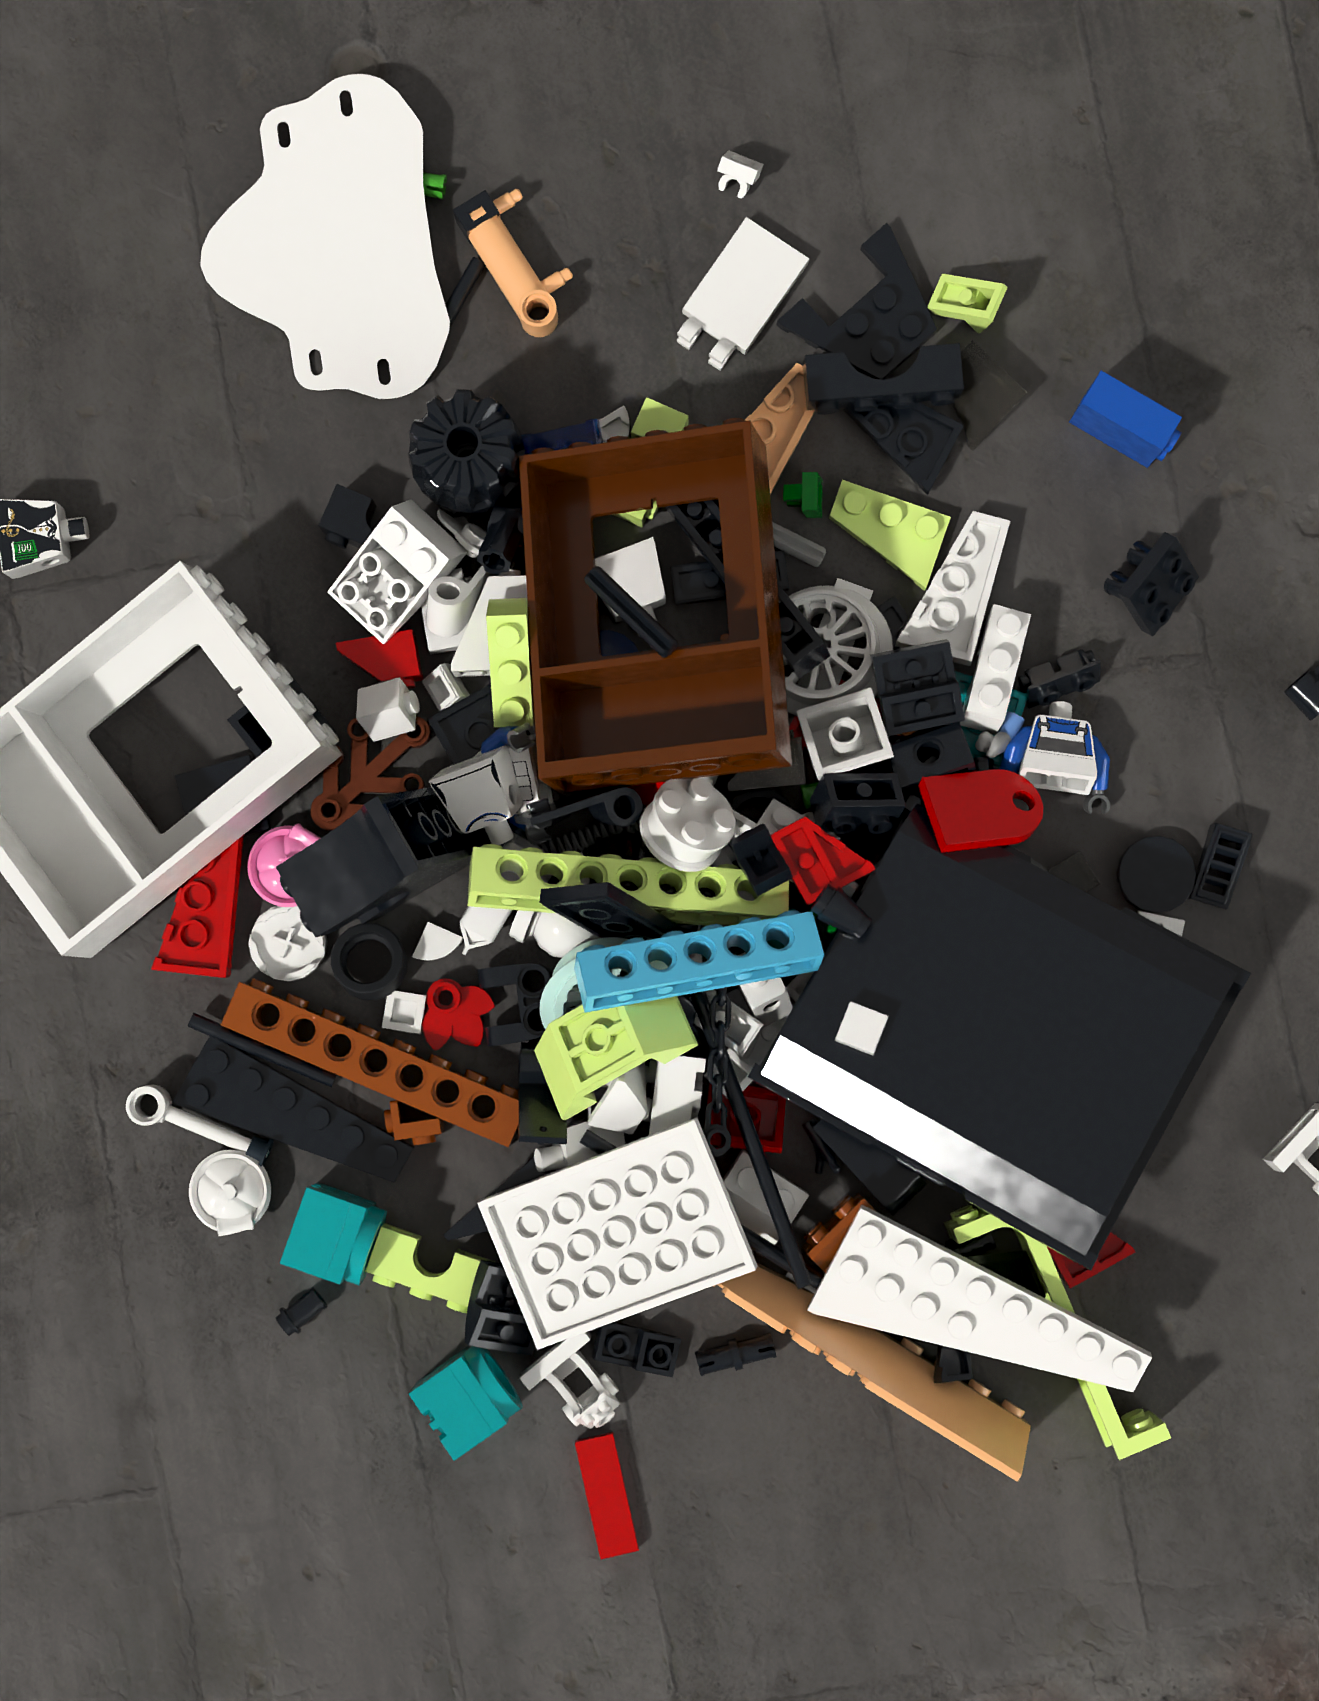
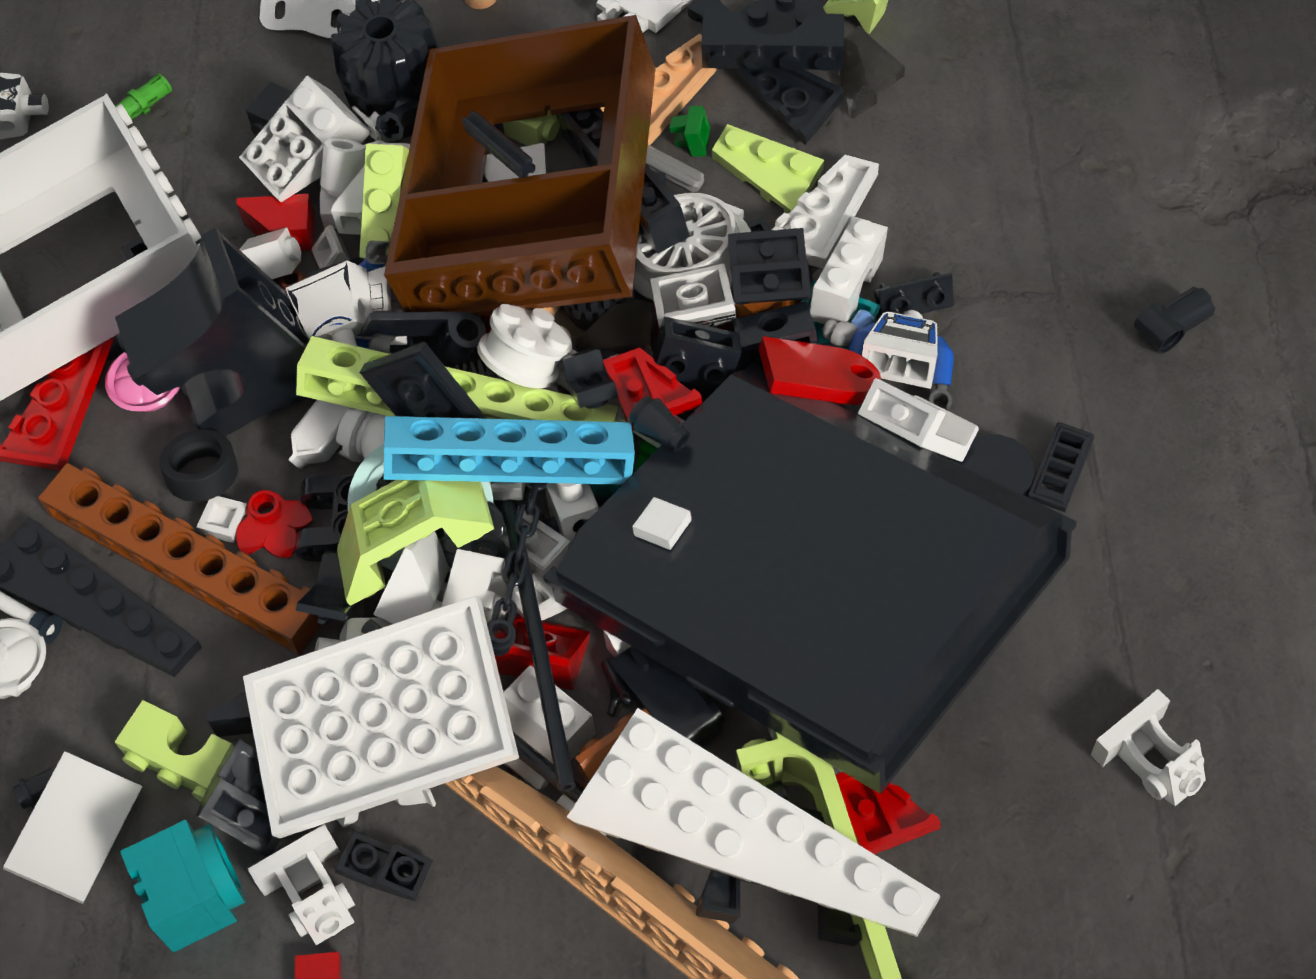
camera: 10 degrees right, 25 degrees down
(188, 510) = (144, 97): none -> bright green pin
(261, 1050) = (75, 536): black bar -> none
(284, 946) = (127, 448): white tile -> none
(333, 1234) = (88, 699): teal piece -> none
(343, 1351) = (72, 827): none -> white tile
(420, 1131) = (203, 621): dark orange bracket -> none
(436, 943) = (268, 461): white tile -> none
(735, 1354) = (489, 884): black pin -> none
(1085, 851) = (918, 420): none -> white panel
(1127, 420) = (992, 90): blue brick -> none
(1157, 583) = (1011, 218): black plate -> none

